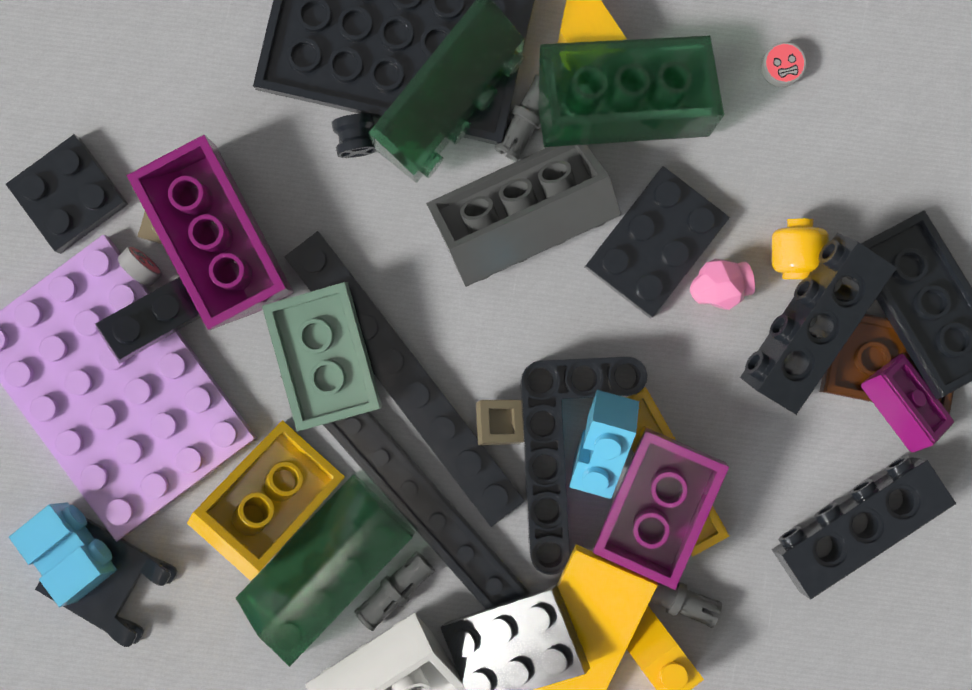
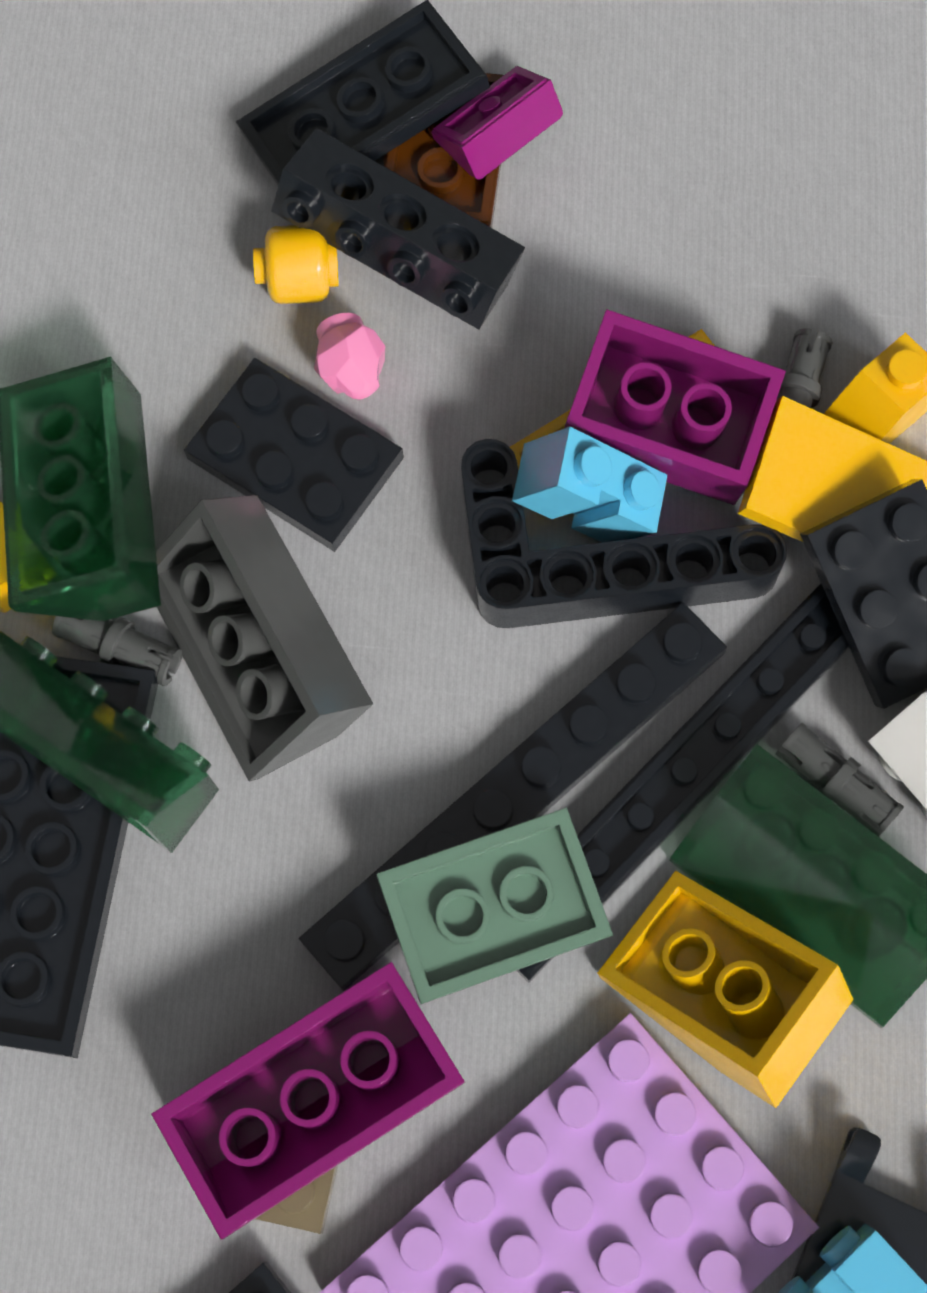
camera: 90 degrees left, 15 degrees down
(139, 266) = (368, 1225): light grey tile -> none
(148, 320) = (453, 1190): black plate -> none
(354, 135) = (148, 890): black wheel -> none
(499, 422) = (571, 644): dark tan plate -> none
(783, 64) = (37, 307): tile -> none
(922, 501) = (627, 95): black brick -> none

